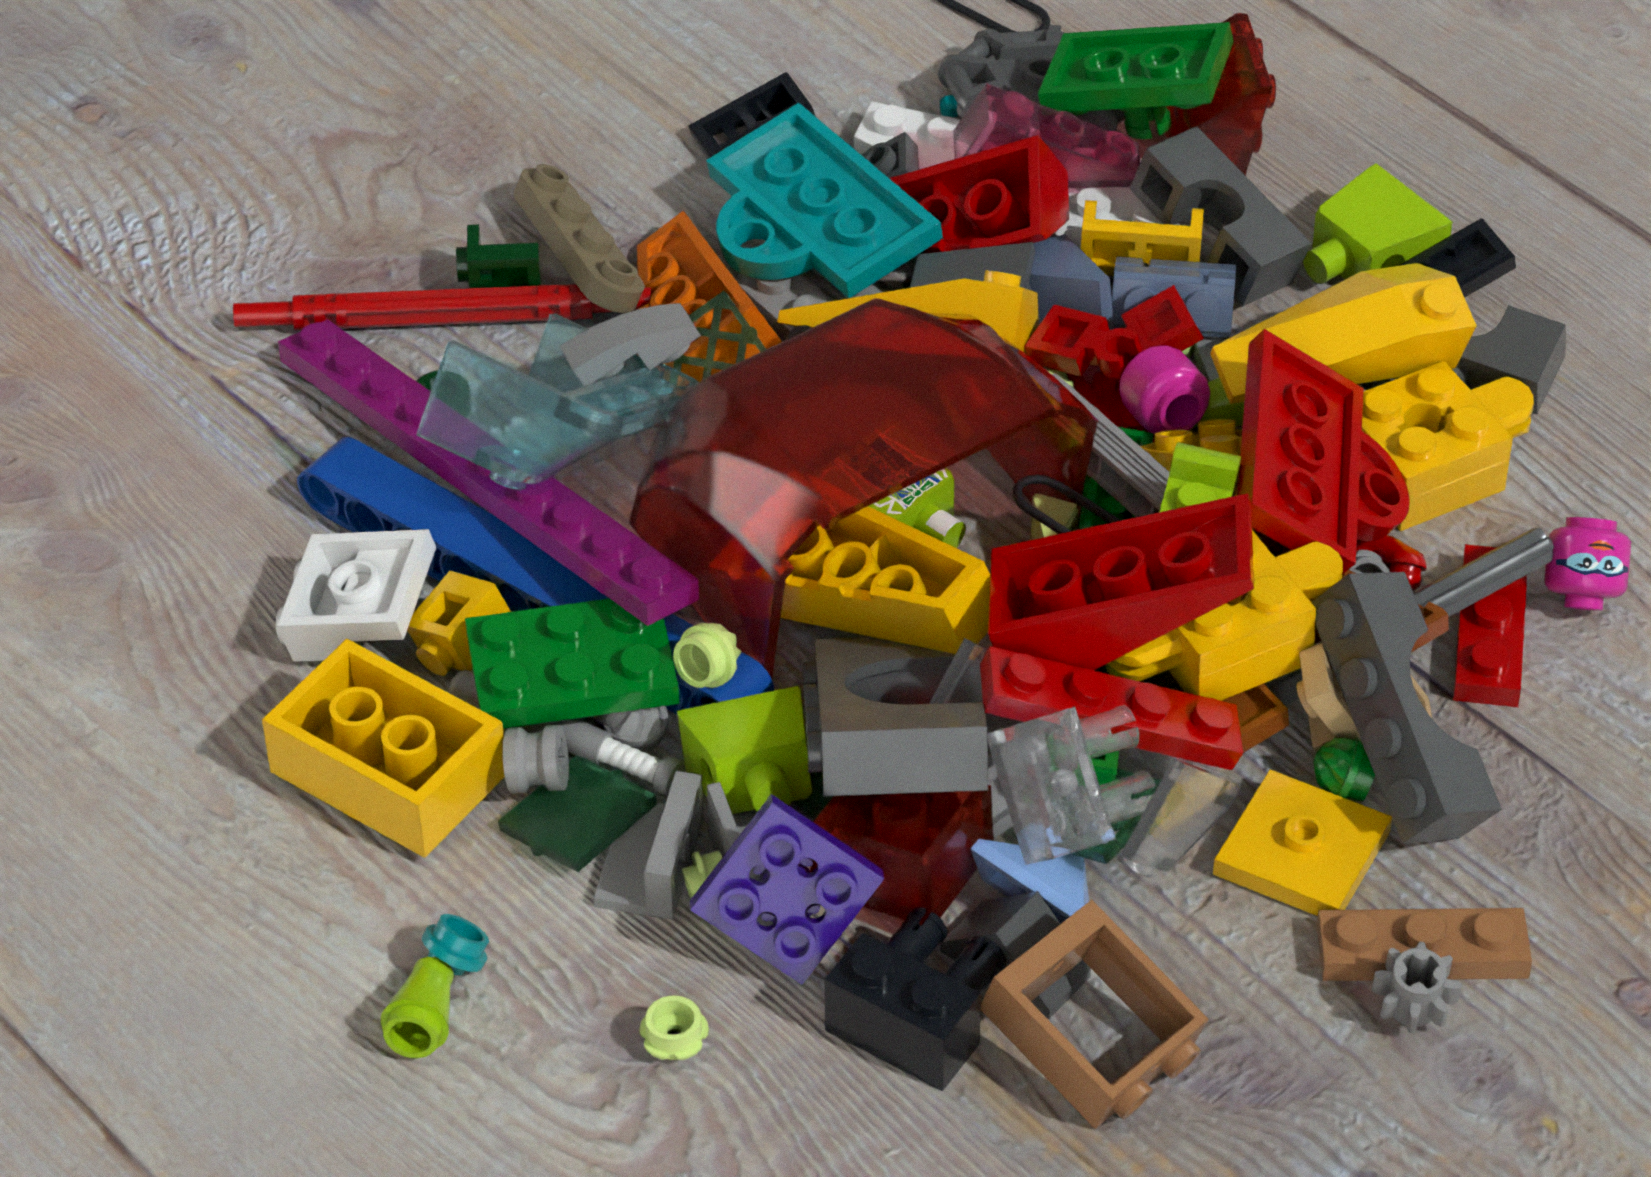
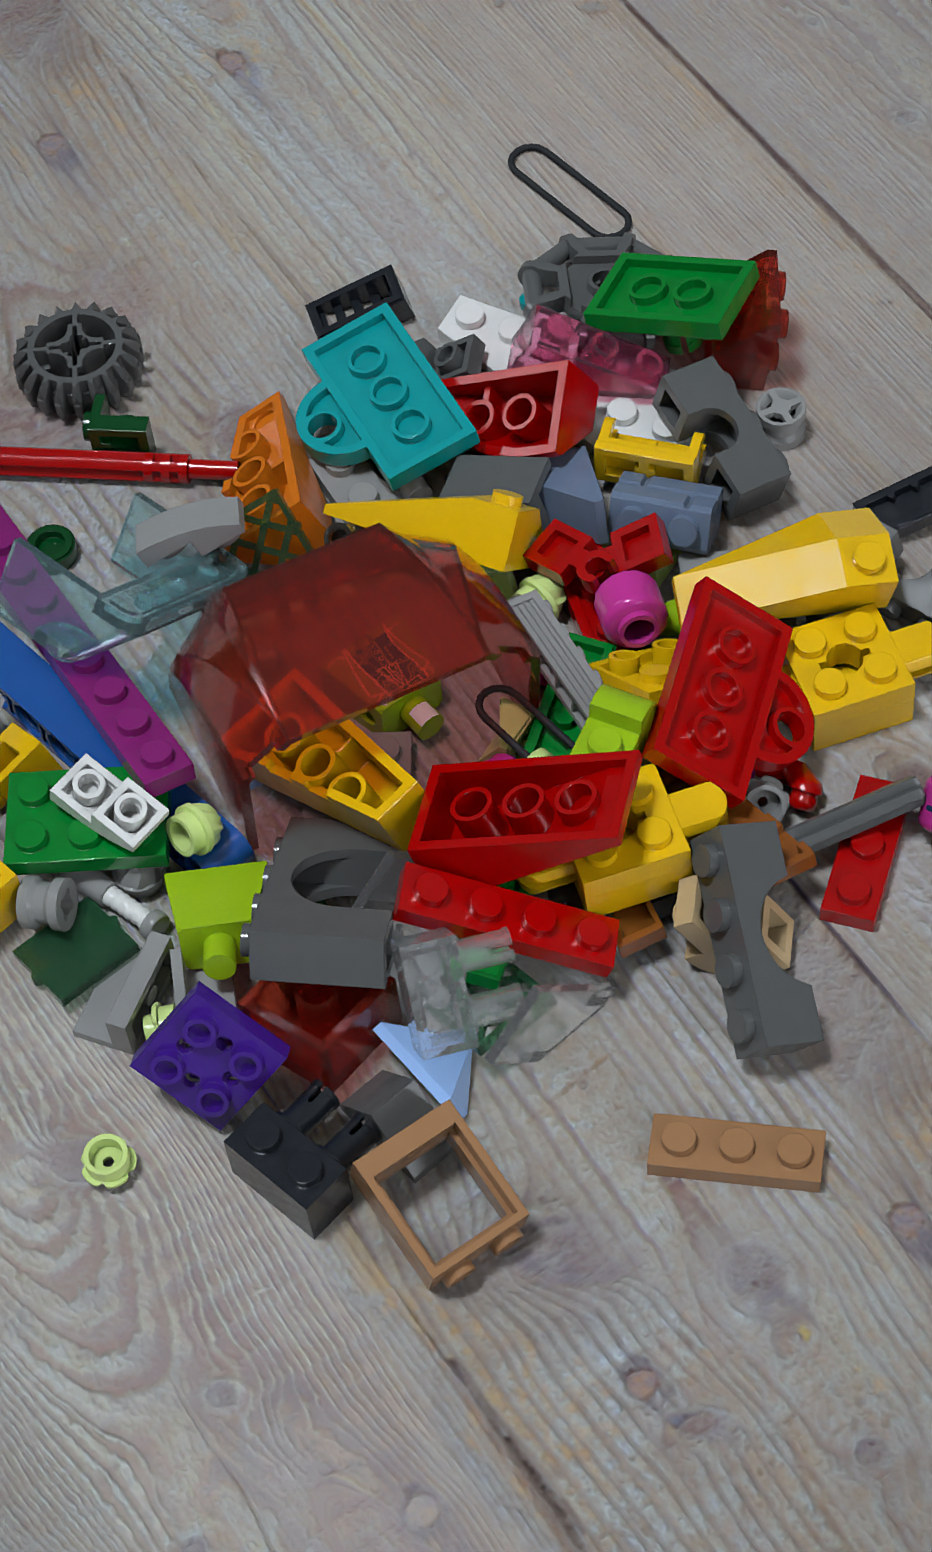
camera: 15 degrees right, 10 degrees up
(427, 194) = (76, 357): none -> dark grey gear
(578, 239) = (188, 412): dark tan plate -> none
(607, 638) = (107, 805): none -> white slope
(1285, 187) = (789, 410): none -> light grey wheel
(1302, 845) = (657, 1047): yellow plate -> none
(1344, 768) = (700, 983): green plate -> none
(1372, 227) = (850, 459): lime torso -> none
(1416, 987) = (723, 1185): light grey gear -> none

